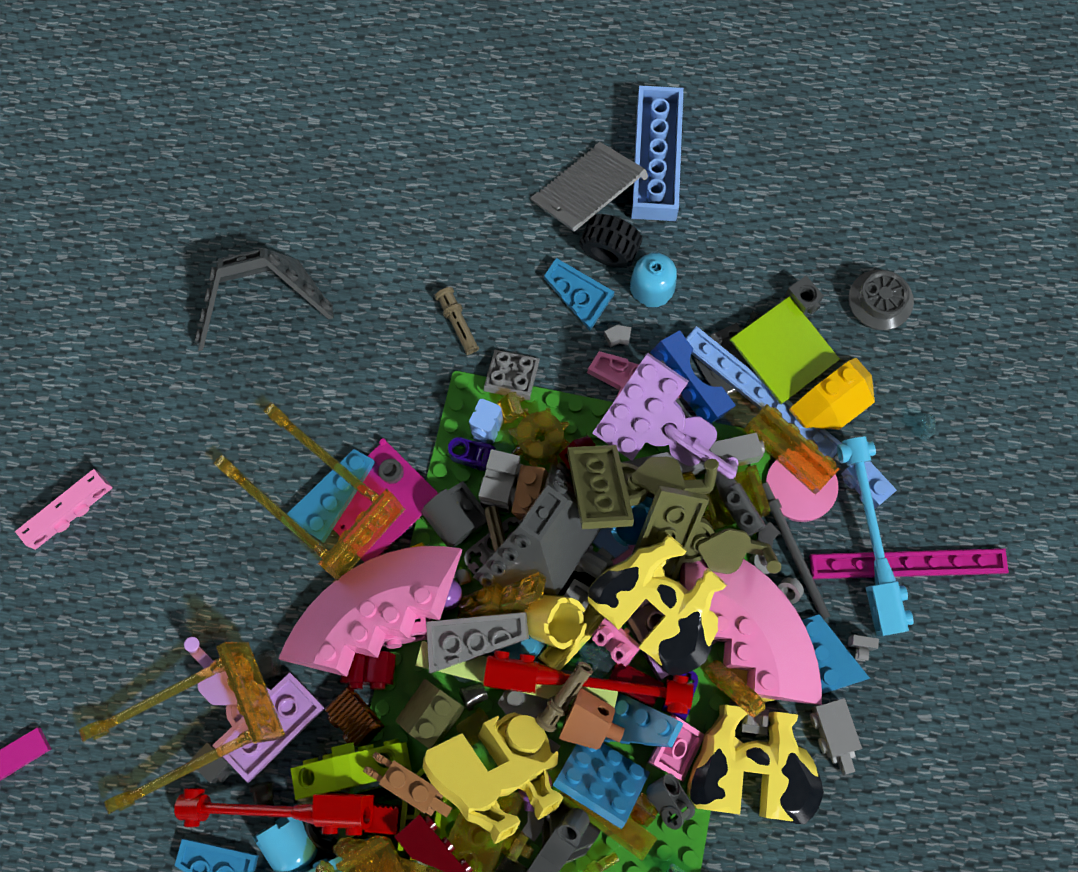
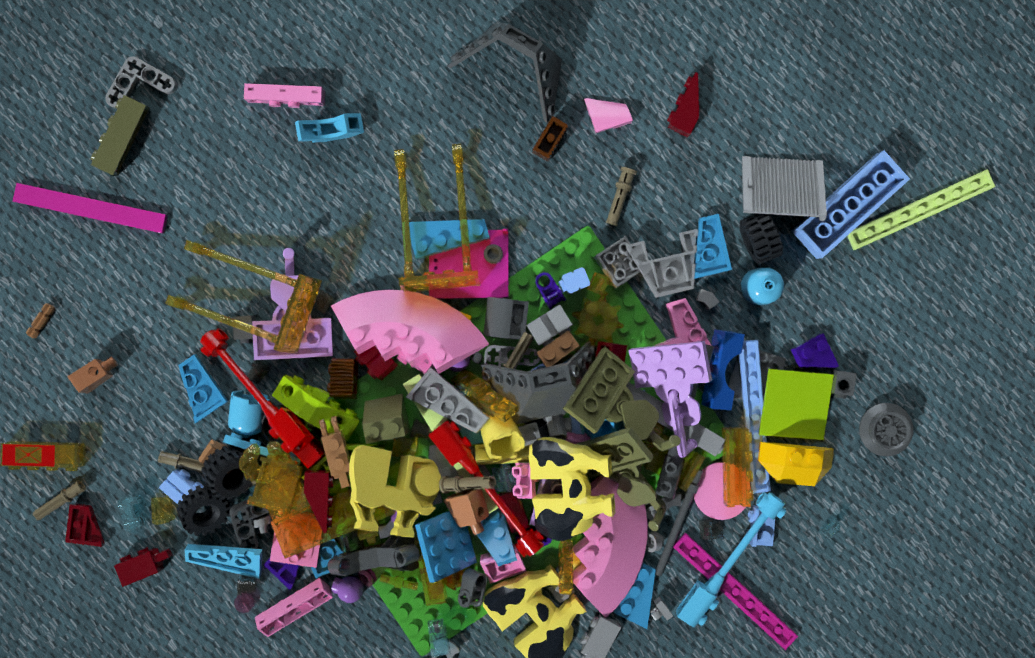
camera: 45 degrees right, 15 degrees up
(137, 499) = (330, 129): none -> medium azure arch
(348, 328) = (550, 139): none -> reddish brown brick
(381, 266) = (607, 114): none -> bright pink slope
(448, 203) = (687, 112): none -> dark red slope
(562, 345) = (668, 273): none -> light grey wing
(717, 110) = (921, 209): none -> yellowish green tile
(756, 294) = (815, 353): none -> dark purple wing
(828, 529) = (710, 529): none -> clear smoke slope

